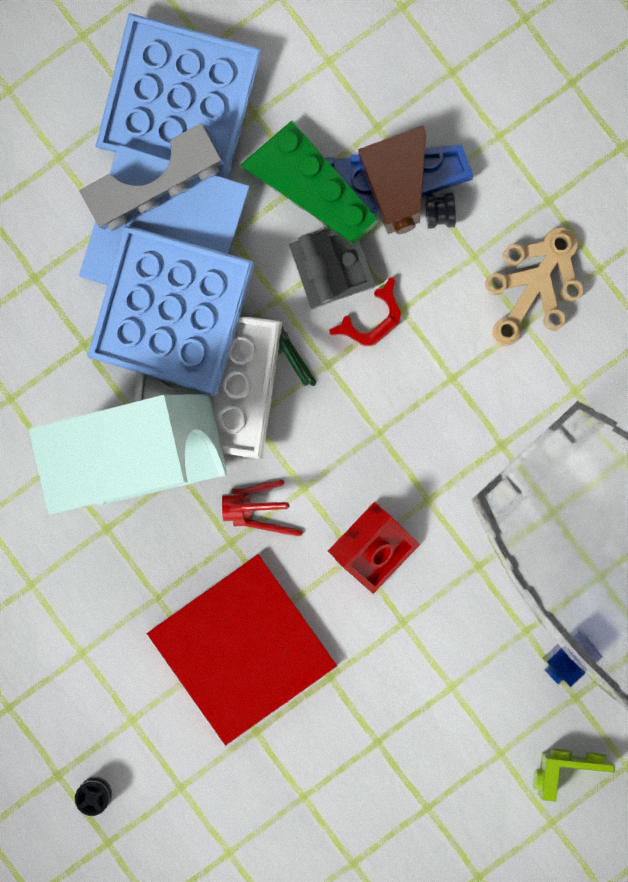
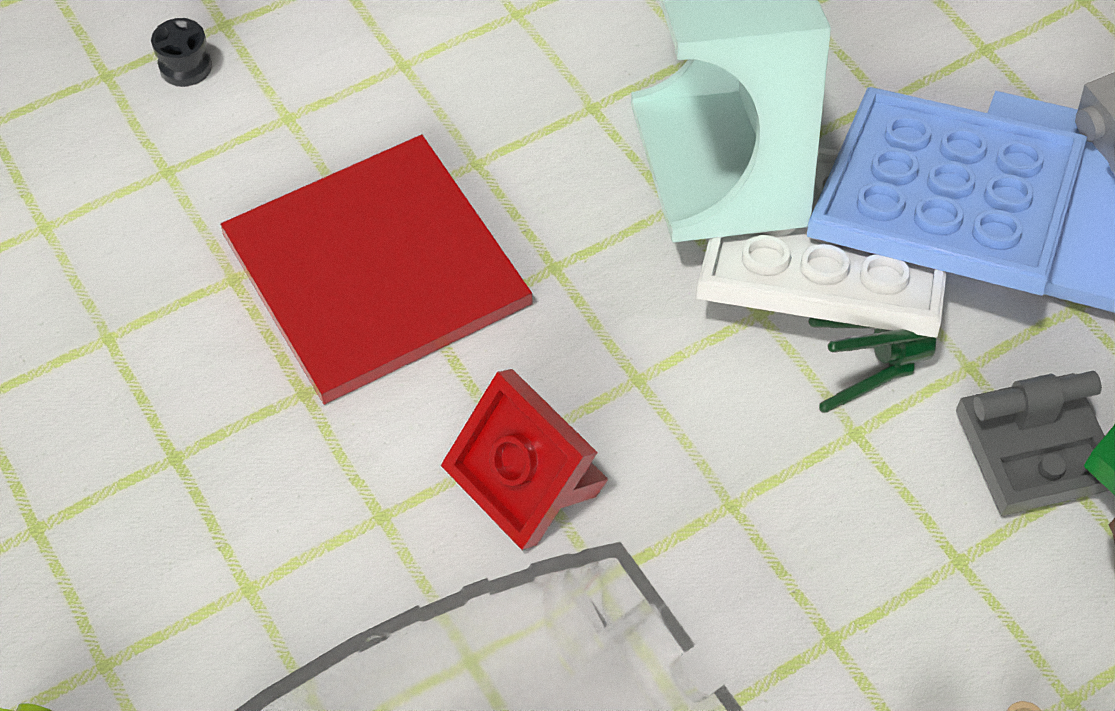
camera: 90 degrees right, 30 degrees down
(237, 507) = (614, 274): red plant -> none
(382, 329) = (944, 540): red helmet -> none

